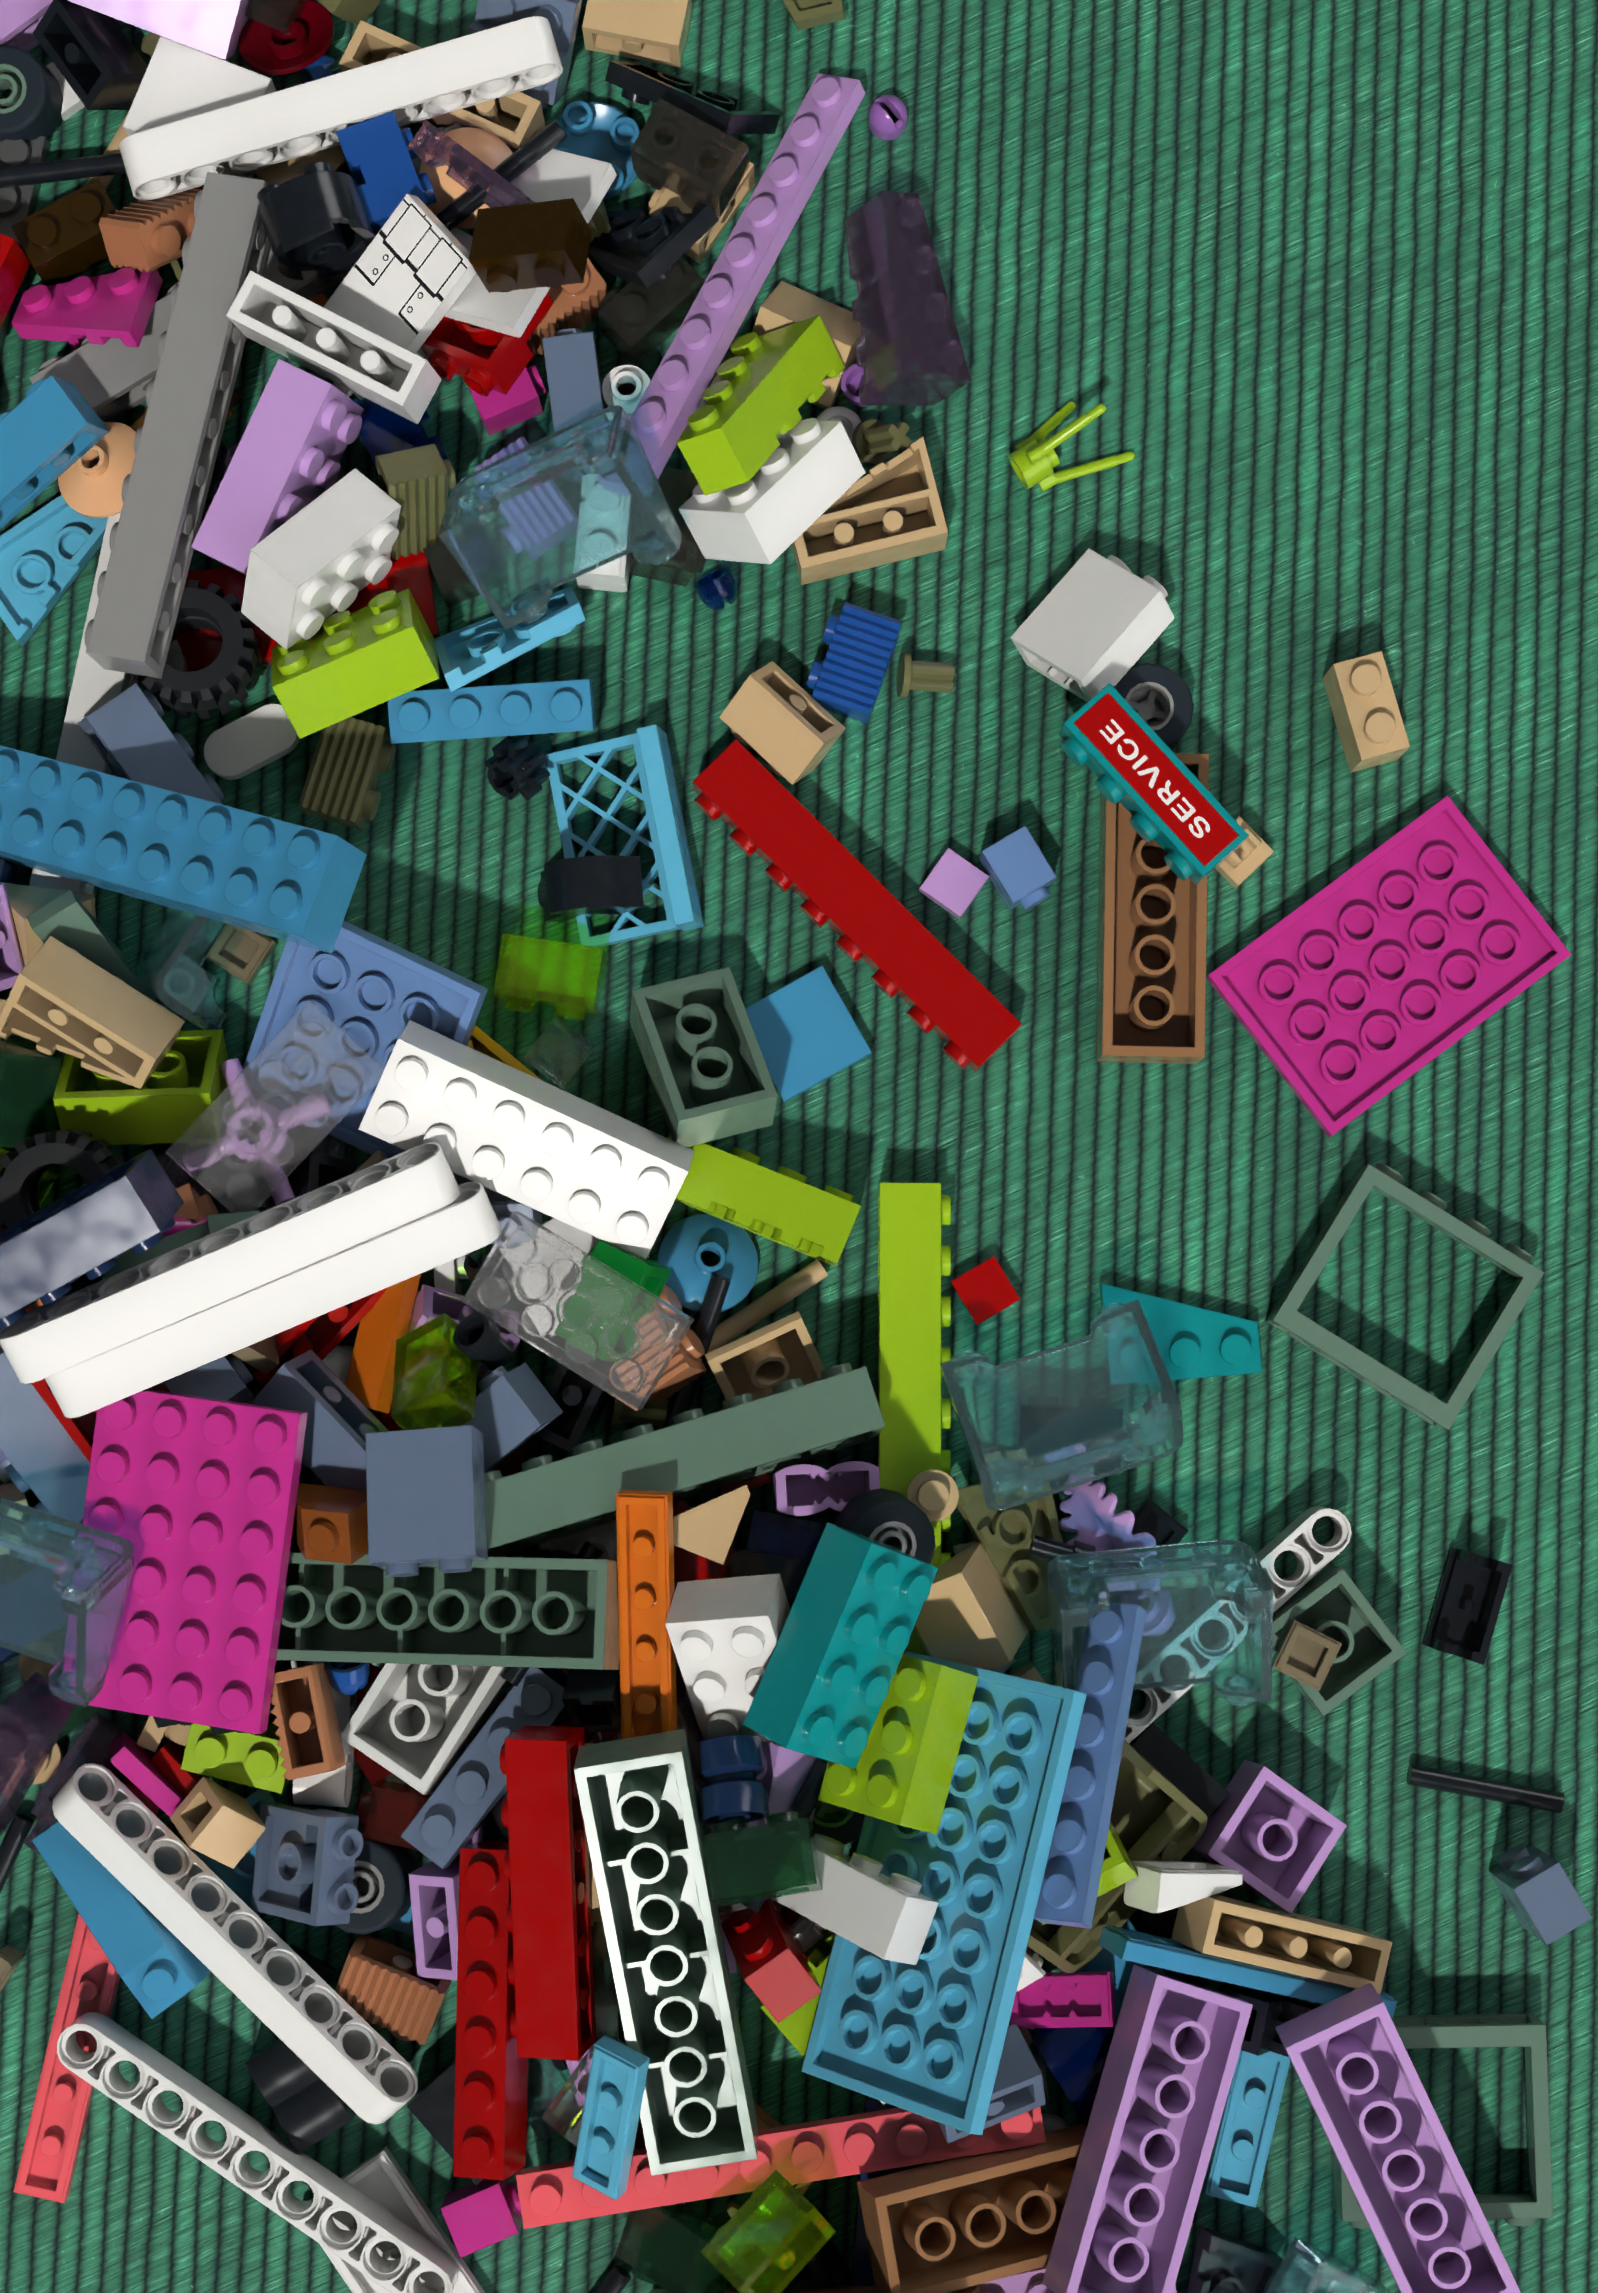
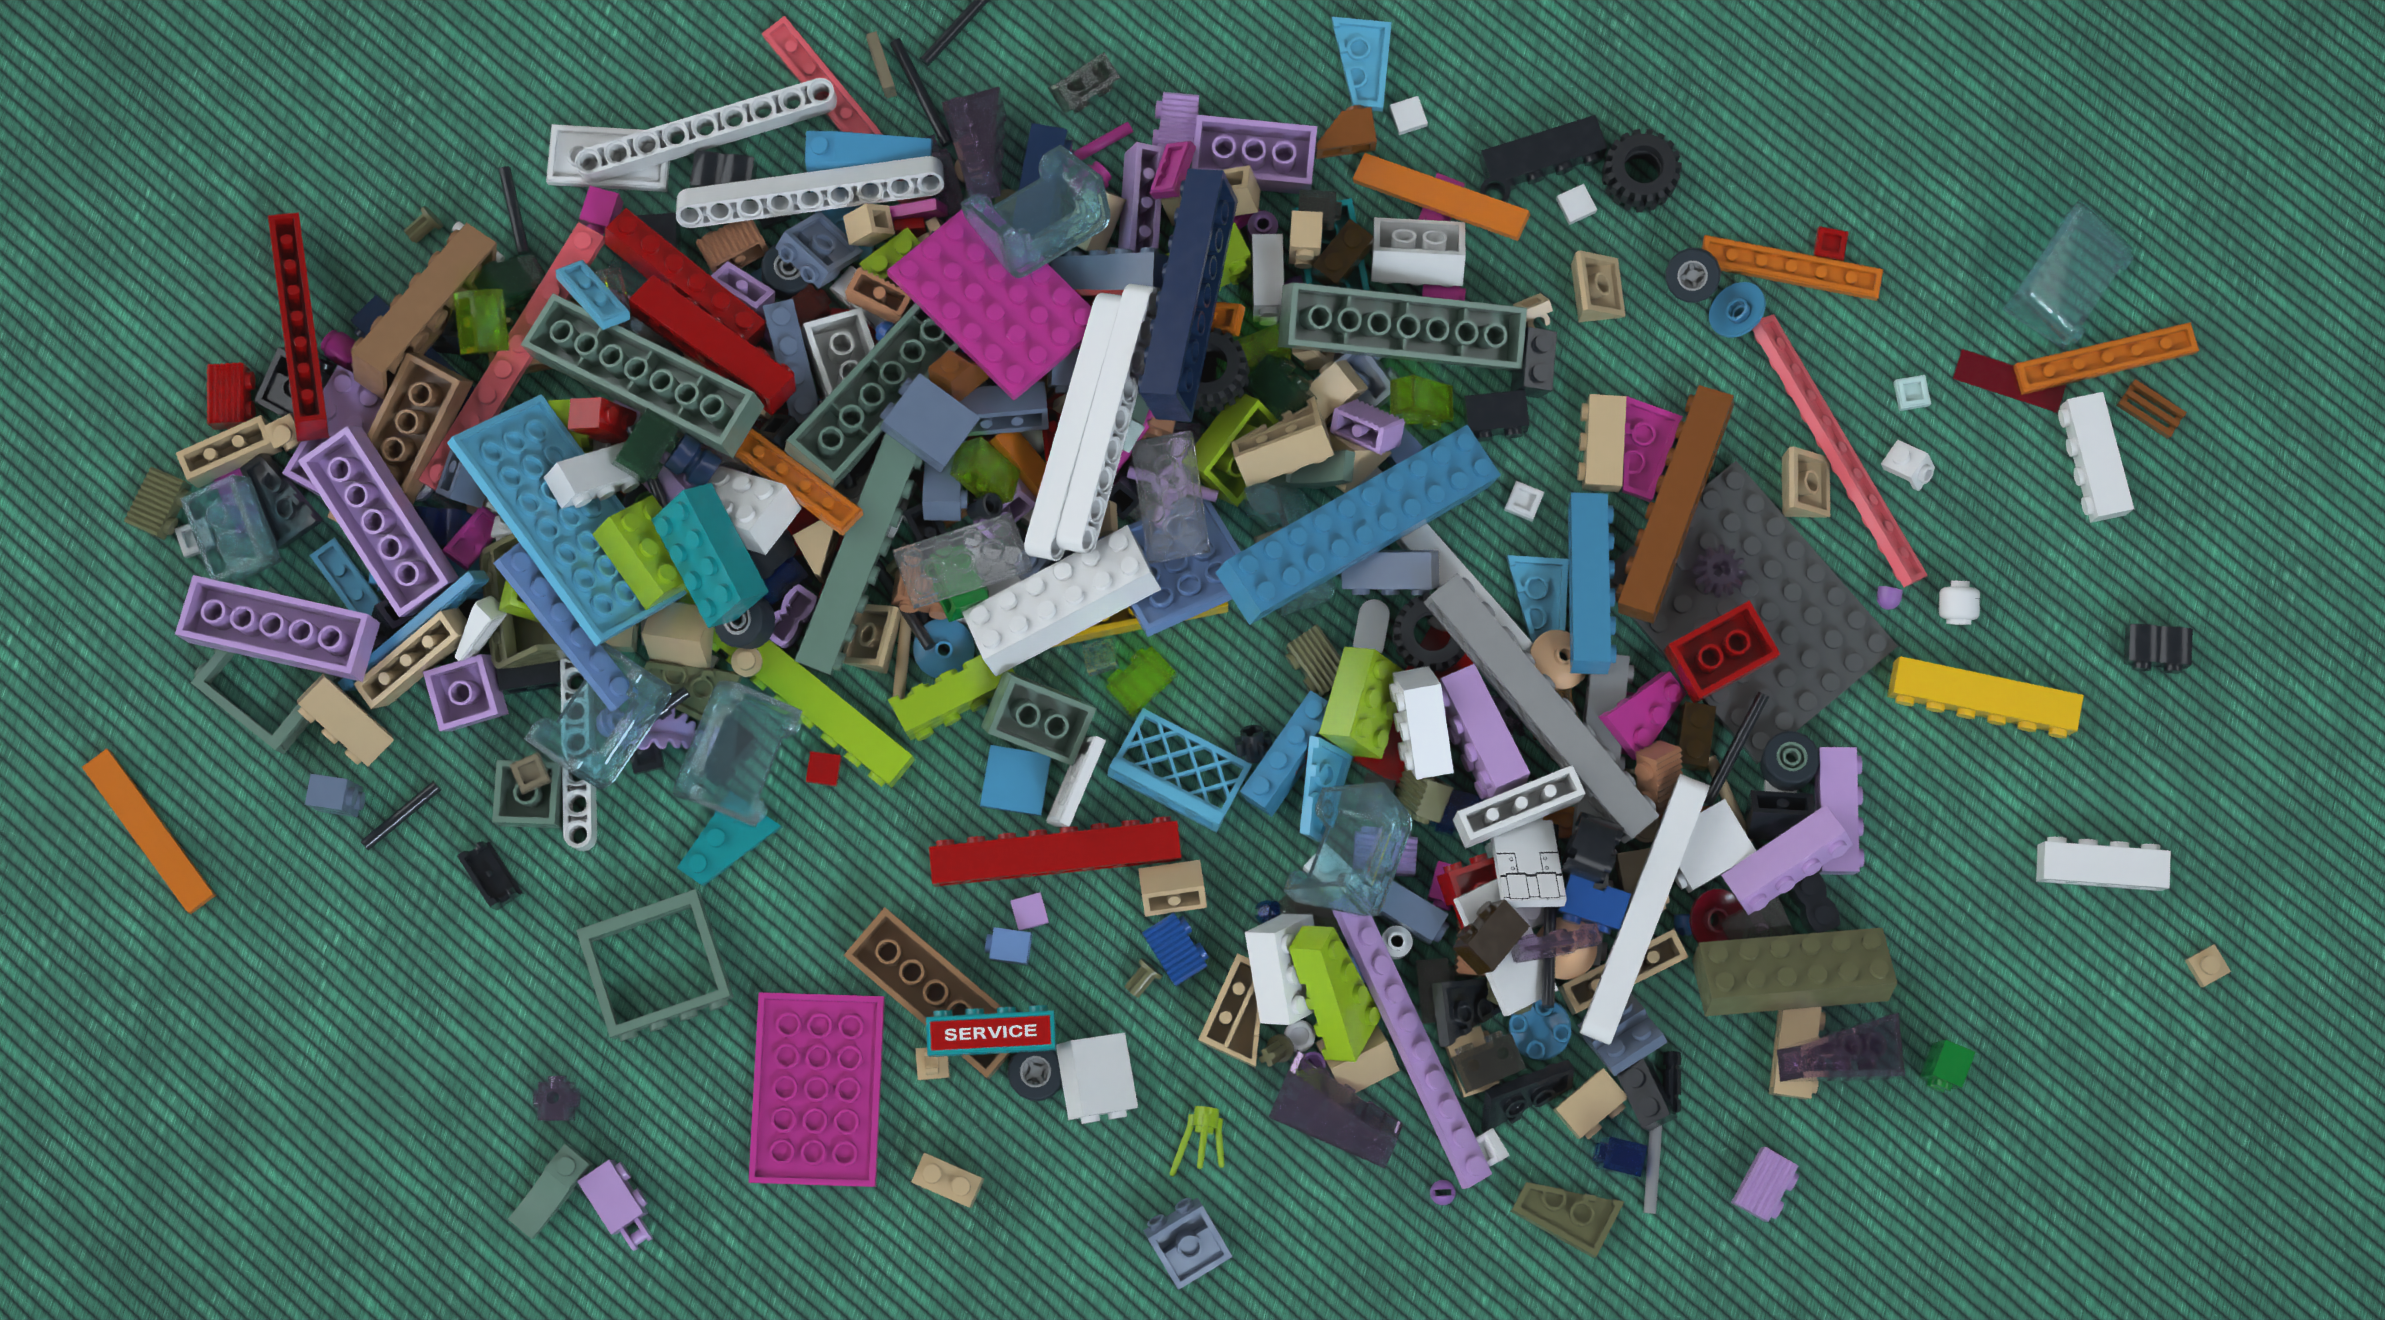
camera: 130 degrees right, 5 degrees down
(590, 886) = (1164, 730): black brick -> none
(751, 943) = (1075, 782): none -> white tile
(786, 92) = (1492, 1147): none -> white tile
(1199, 367) = (1187, 1242): none -> sand blue plate
(1435, 1965) = (344, 721): none -> tan brick

